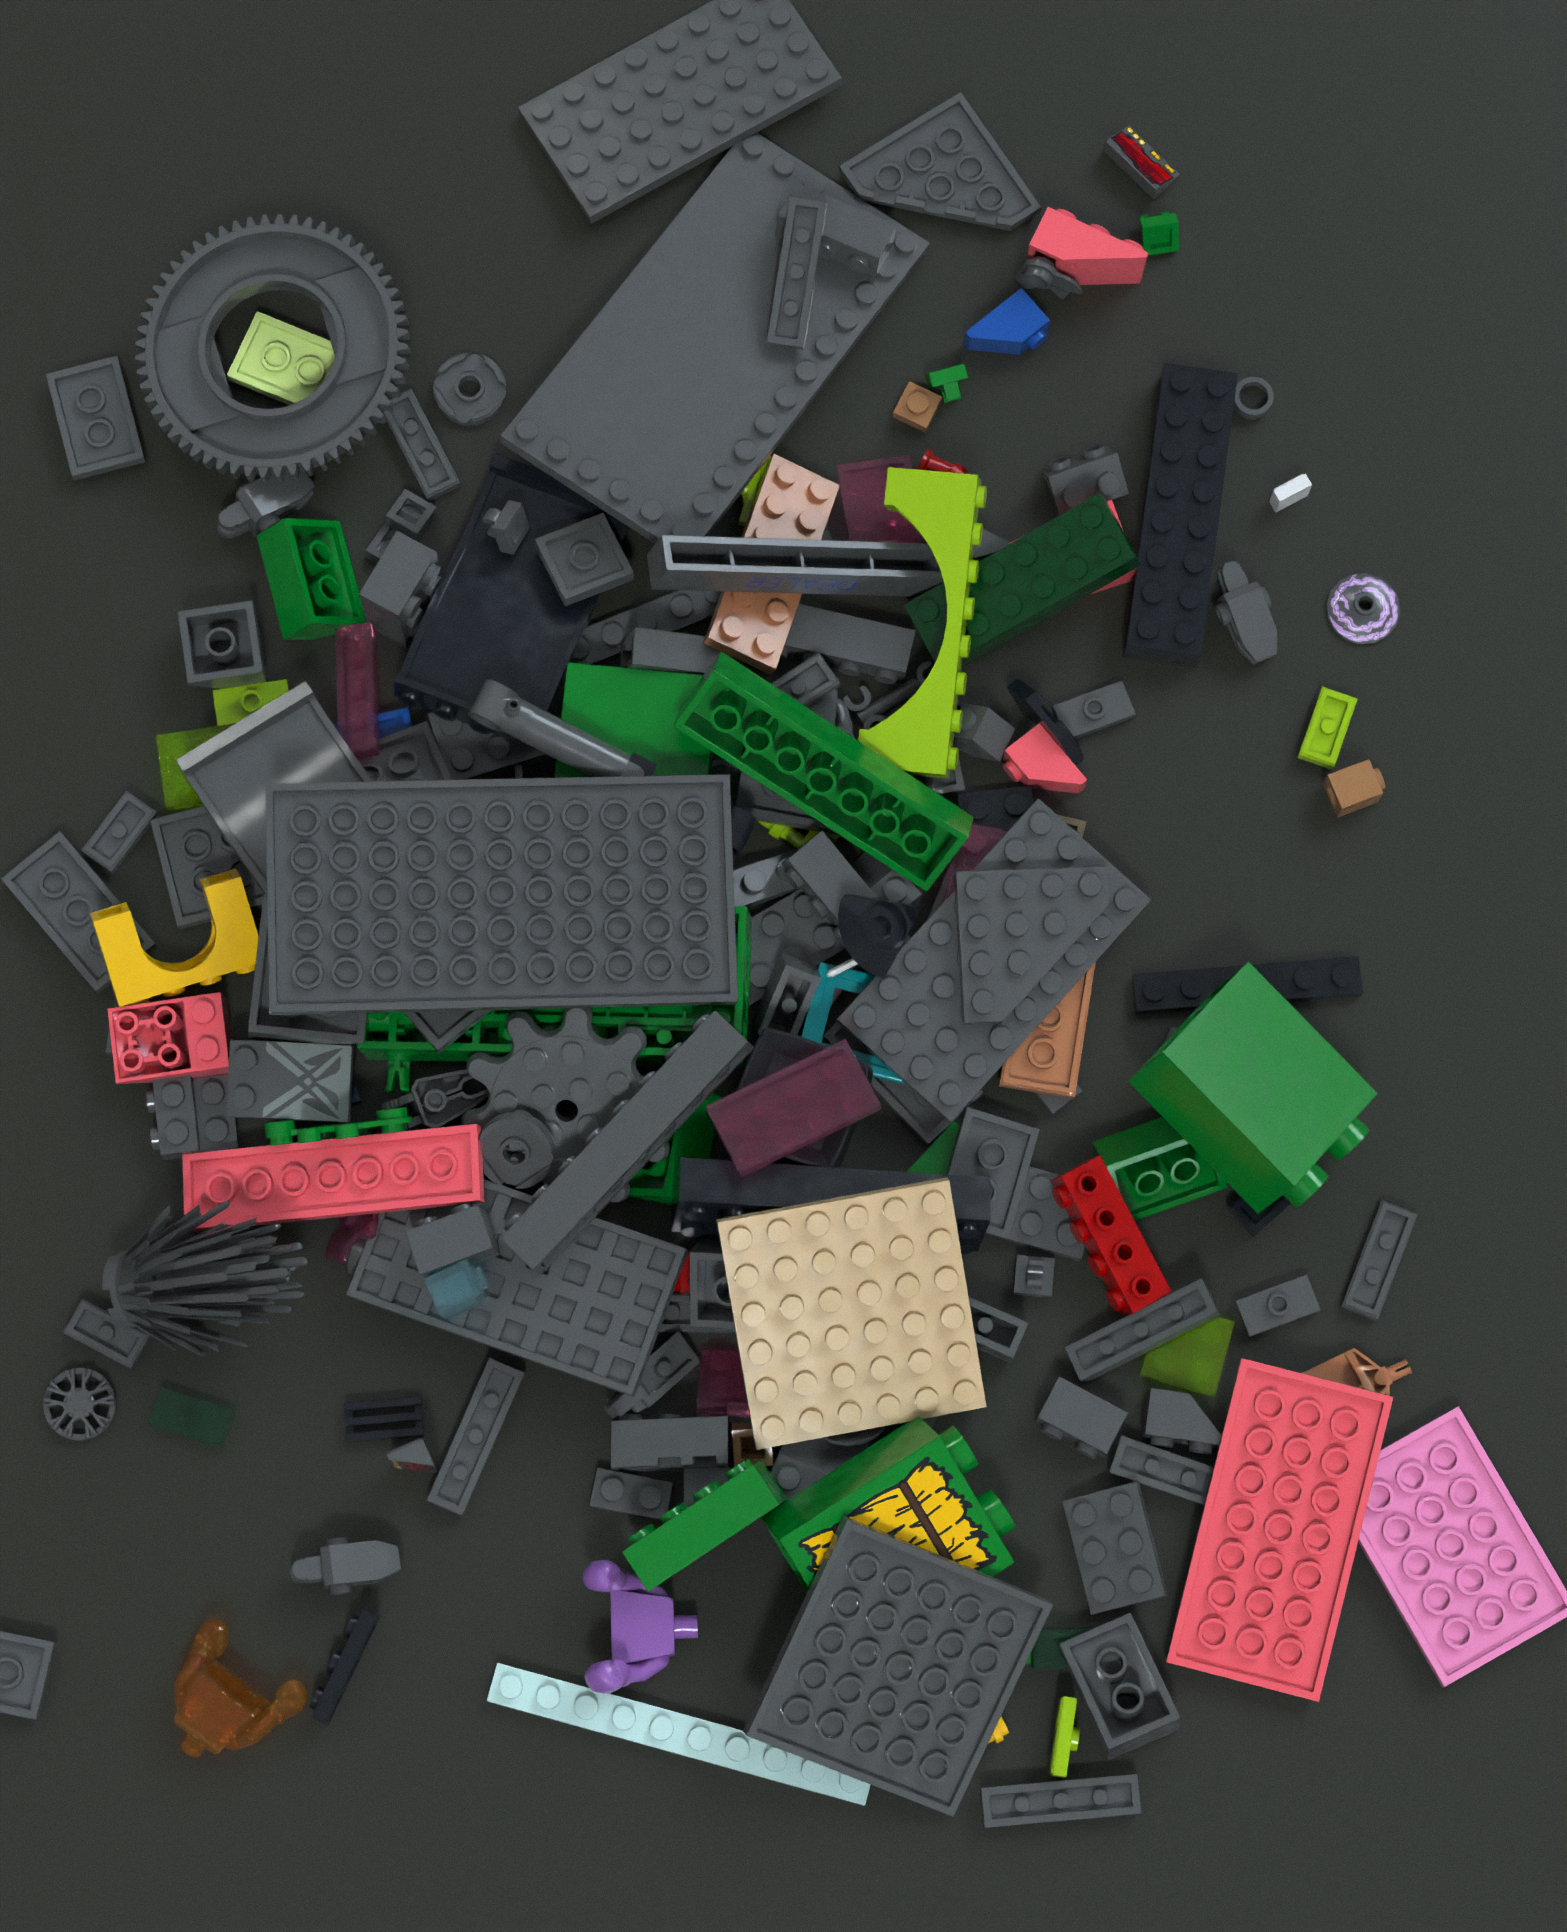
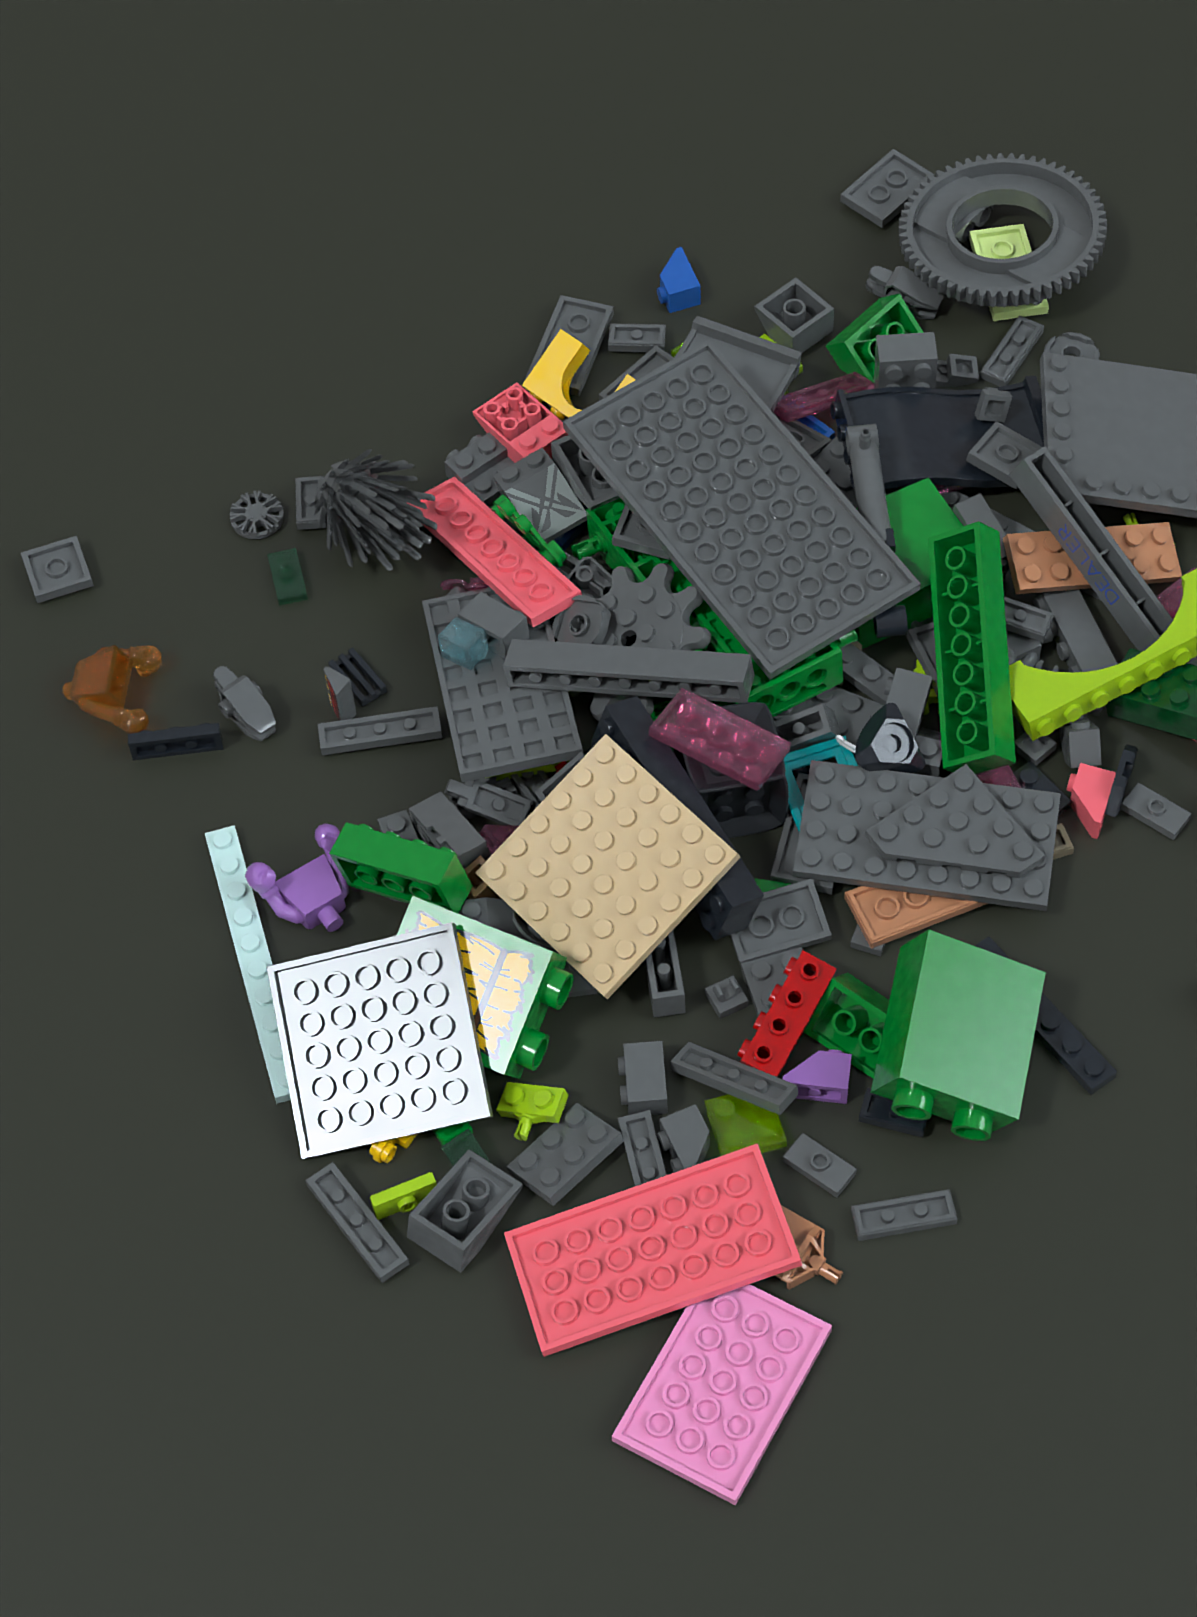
camera: 65 degrees right, 20 degrees down
(75, 737) = (679, 284): none -> blue slope
(1042, 1548) = (531, 1105): none -> lime plate
(1189, 1241) = (822, 1077): none -> medium lavender slope

